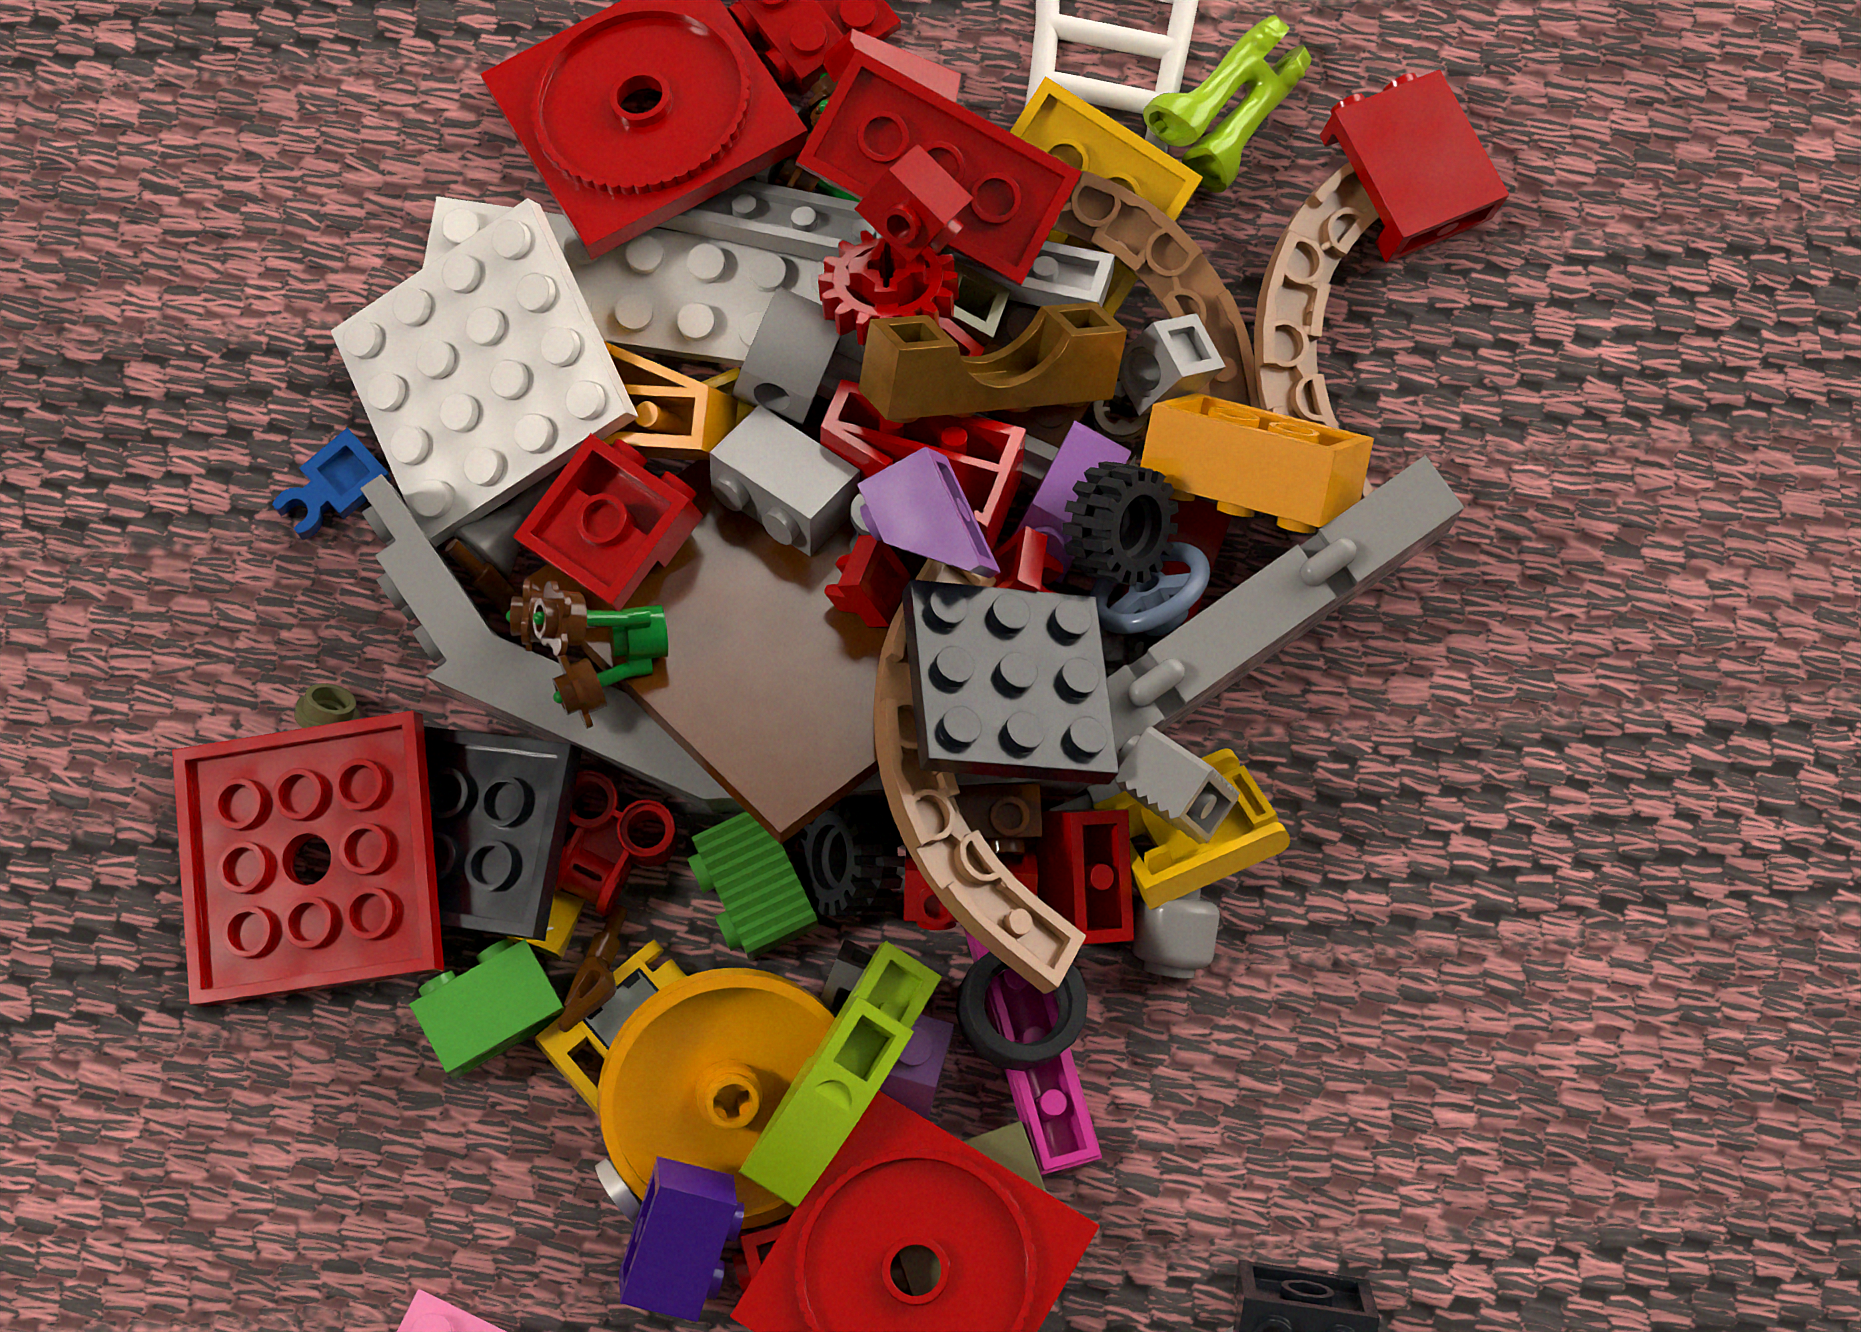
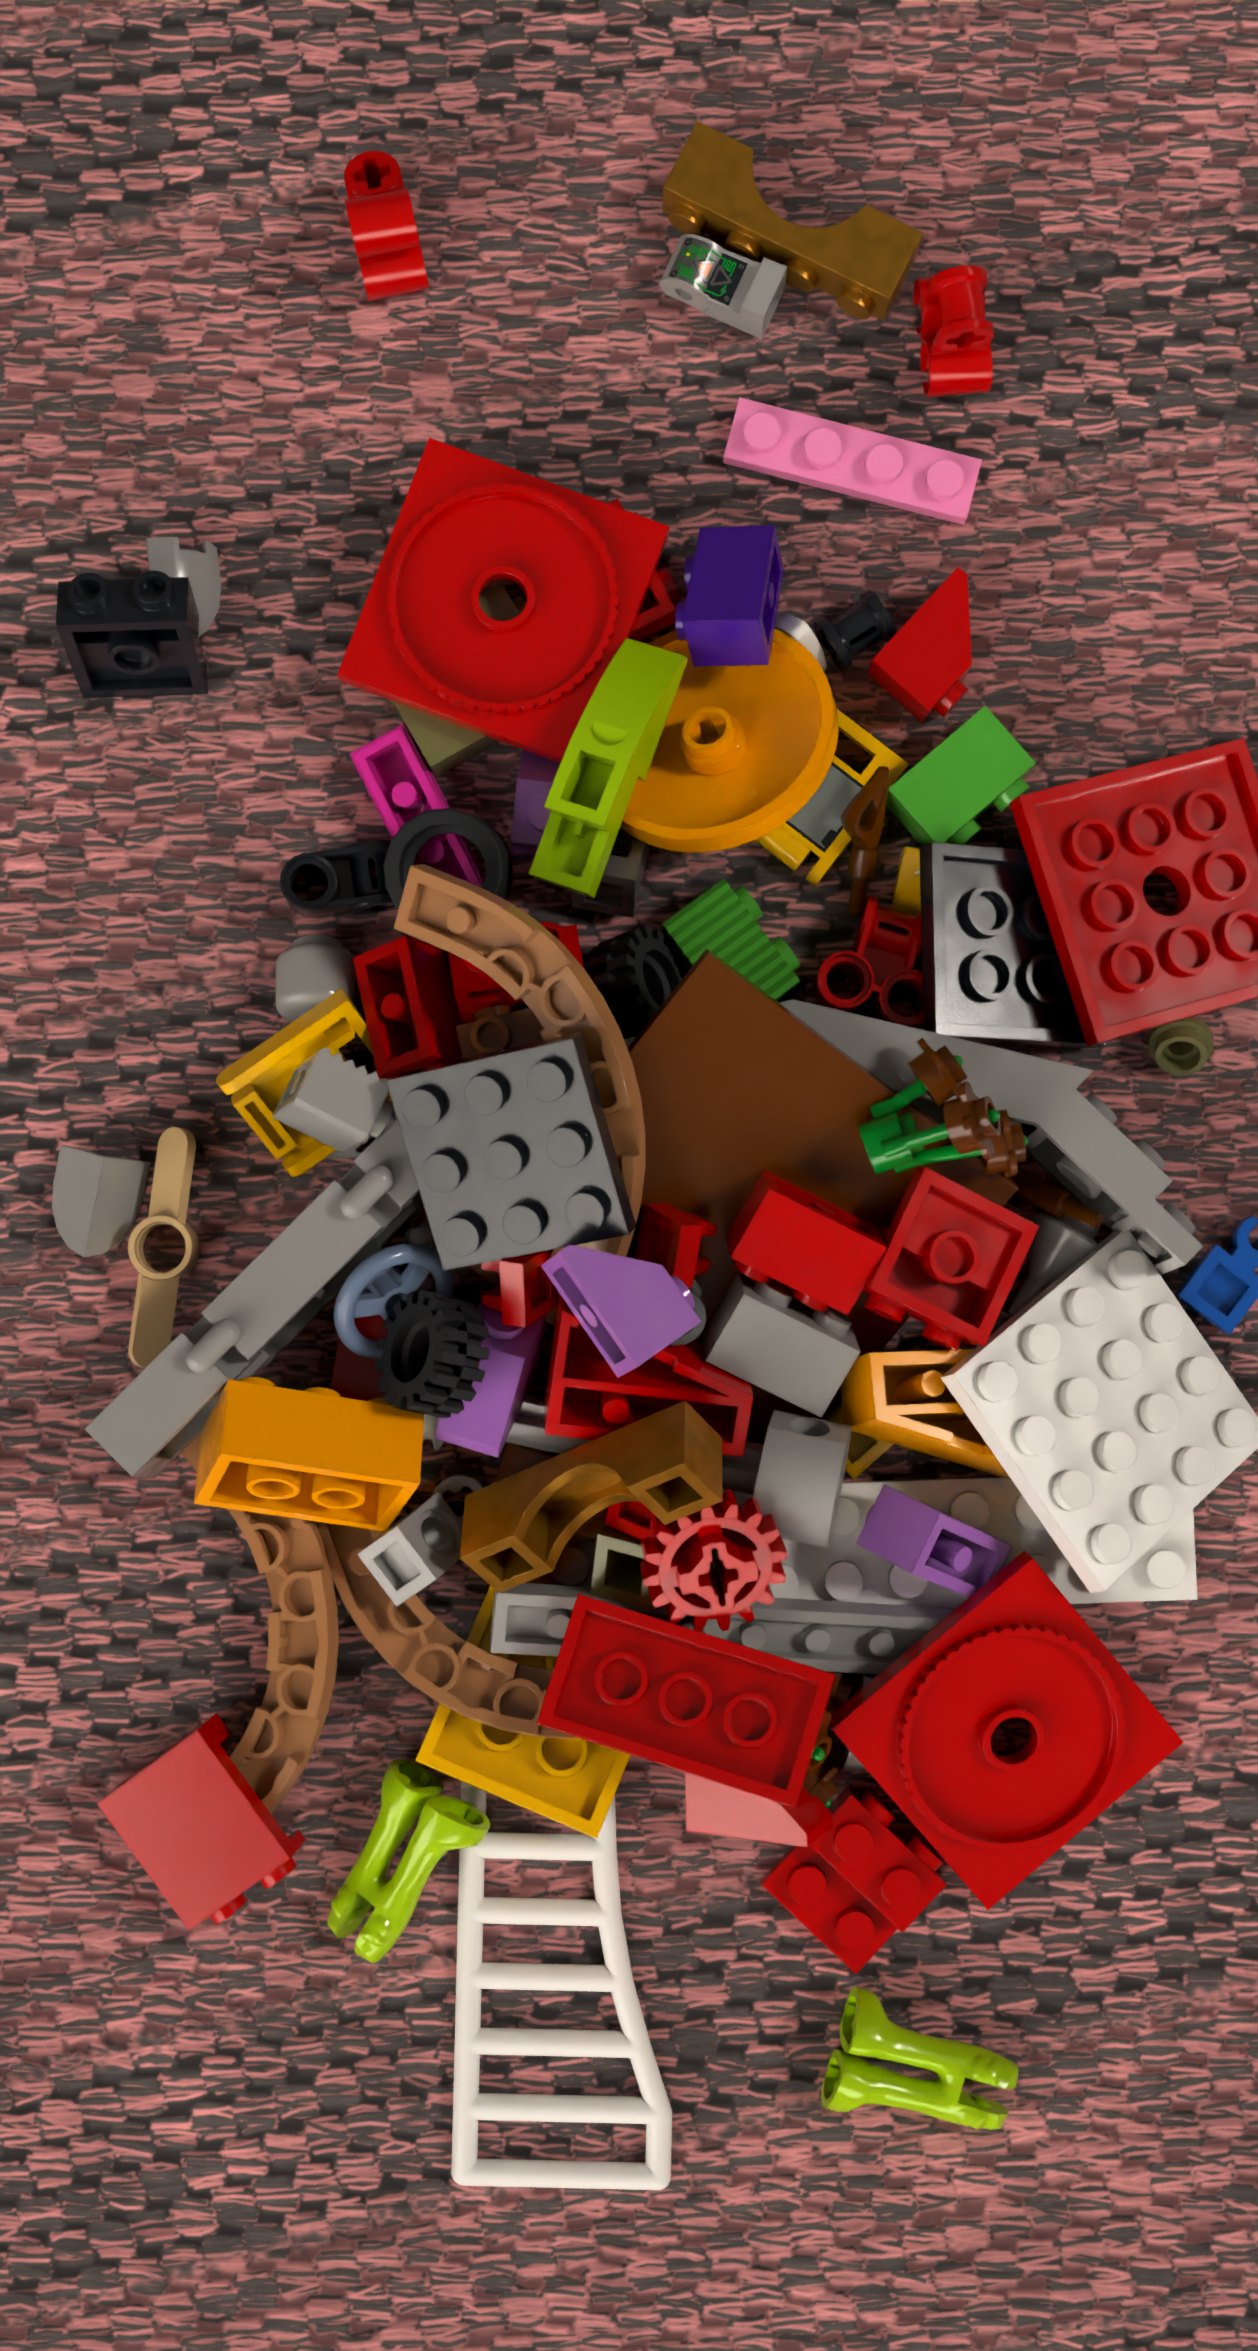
camera: 175 degrees right, 10 degrees up
(486, 1152) = (930, 653): none -> red slope
(558, 1192) = (855, 629): none -> black bush
(678, 281) = (931, 1543): none -> medium lavender slope
(741, 560) = (804, 1244): none -> red brick
(915, 205) = (700, 1642): red brick -> none
(1125, 1031) = (348, 880): none -> black piece
(1380, 666) = (168, 1206): none -> tan piece
(1430, 763) = (96, 1198): none -> light grey brick

